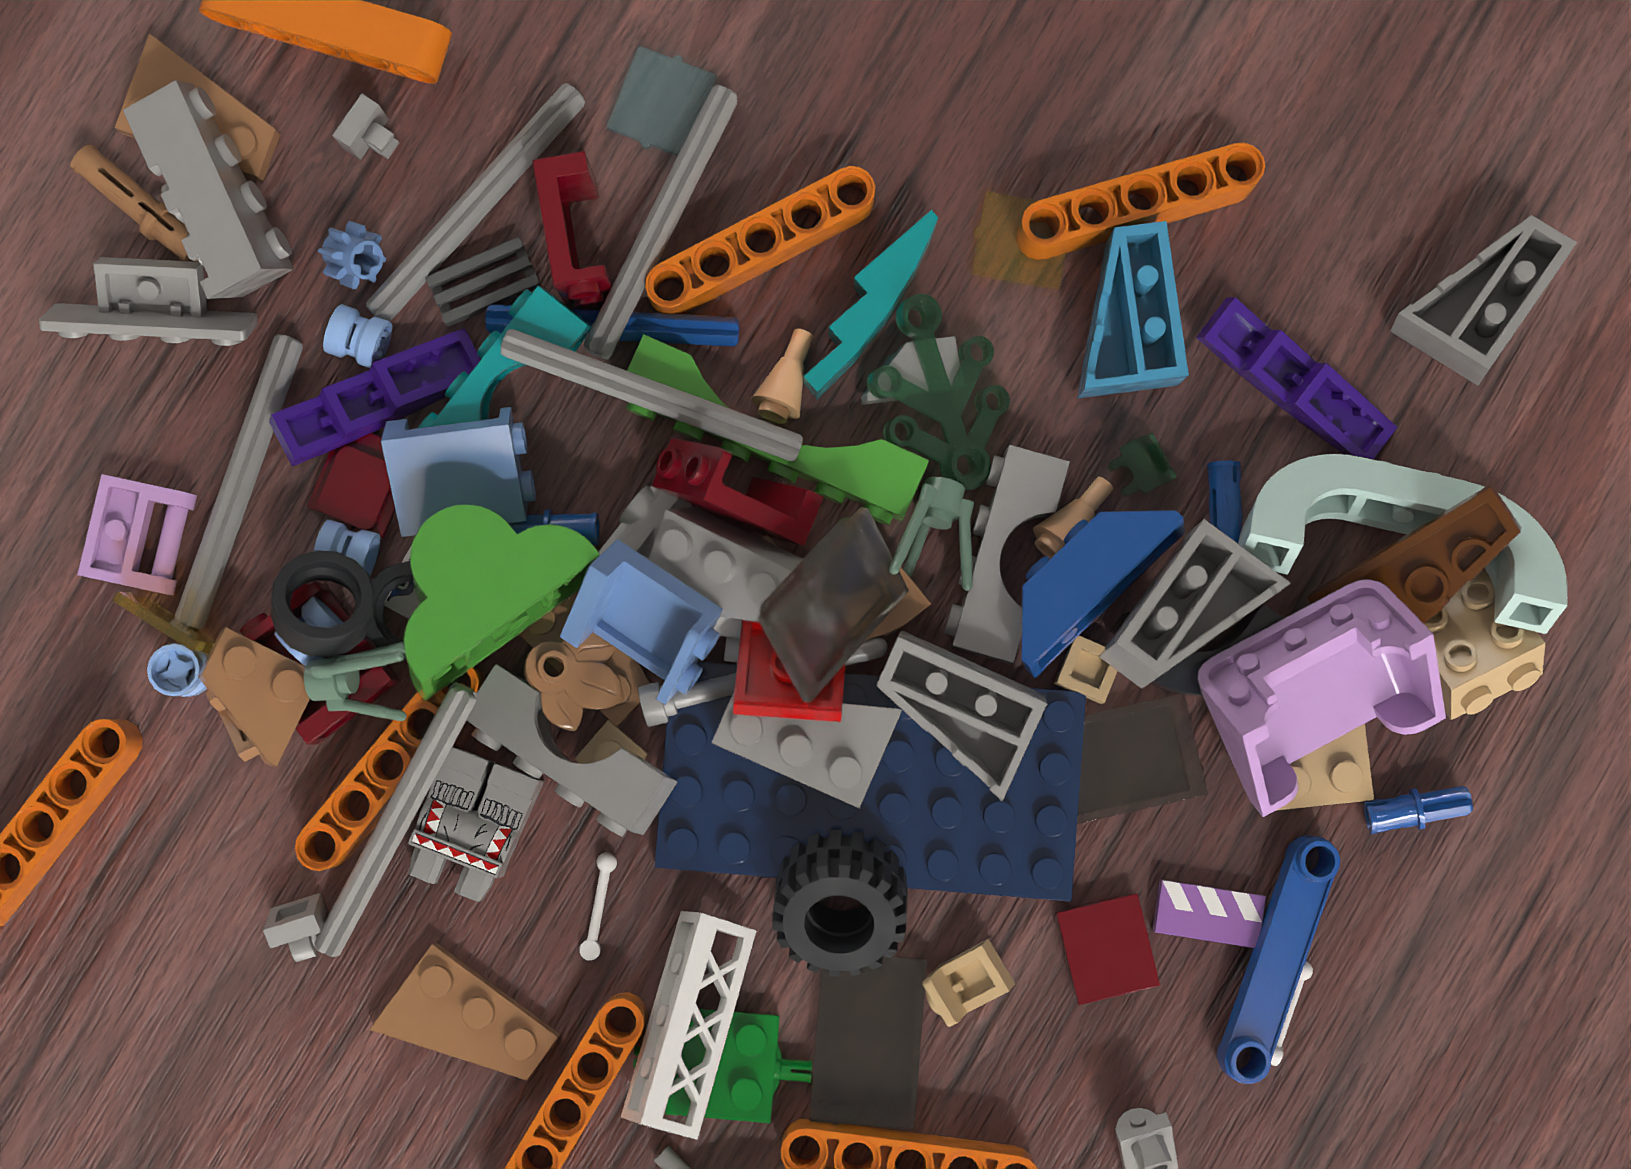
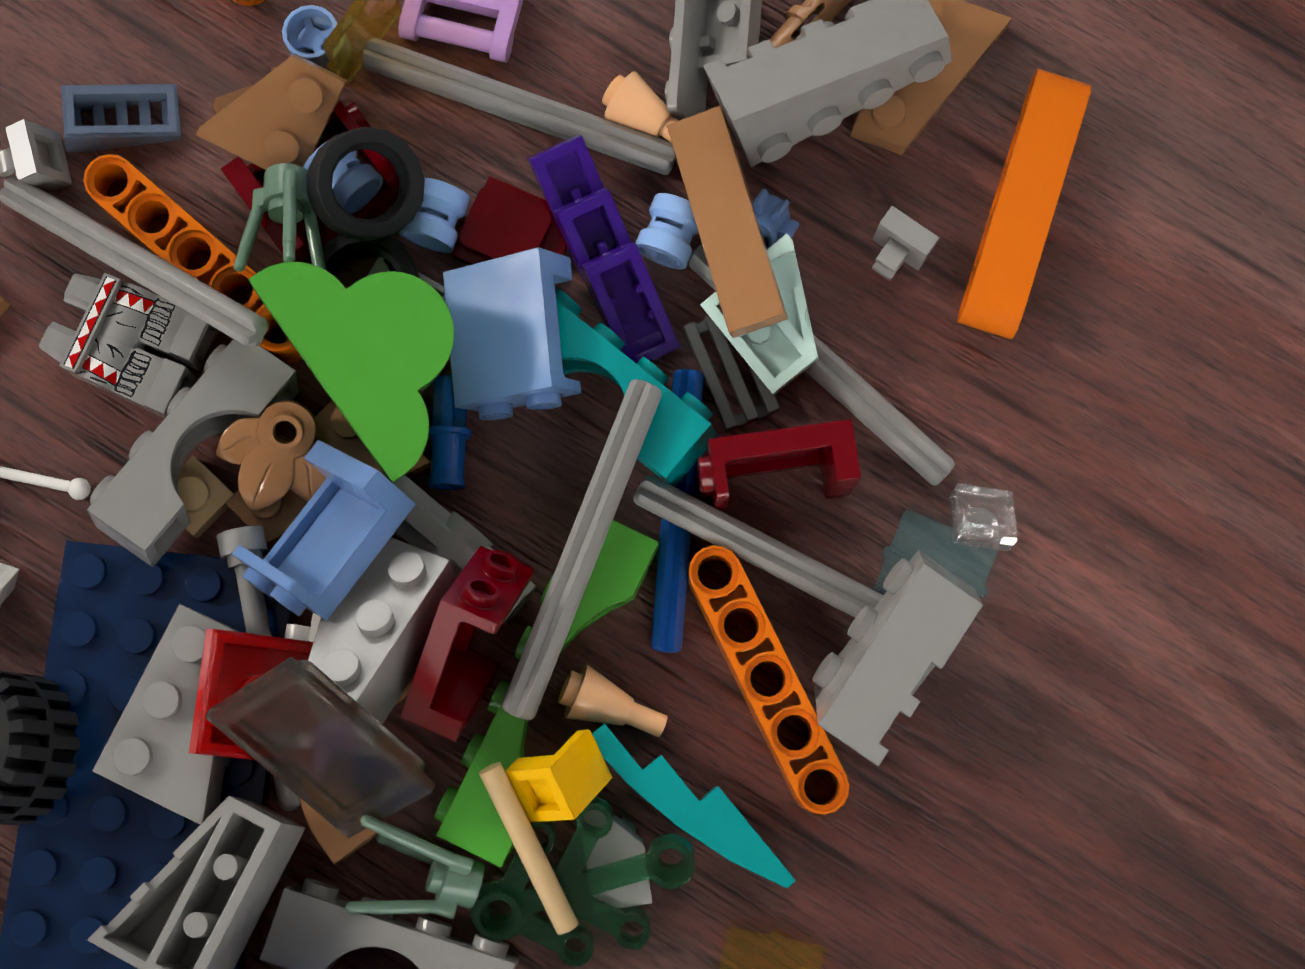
camera: 90 degrees right, 5 degrees down
(241, 367) = (637, 106): none -> light nougat cone
(272, 849) = (104, 137): none -> sand blue slope
(350, 279) = (727, 222): none -> medium nougat tile
(437, 244) = (785, 348): none -> light aqua wing
(613, 57) = (983, 517): none -> clear plate
(734, 129) = (892, 653): none -> light grey wedge
(857, 410) = (561, 783): none -> yellow panel
(911, 436) = (528, 848): none -> tan bar

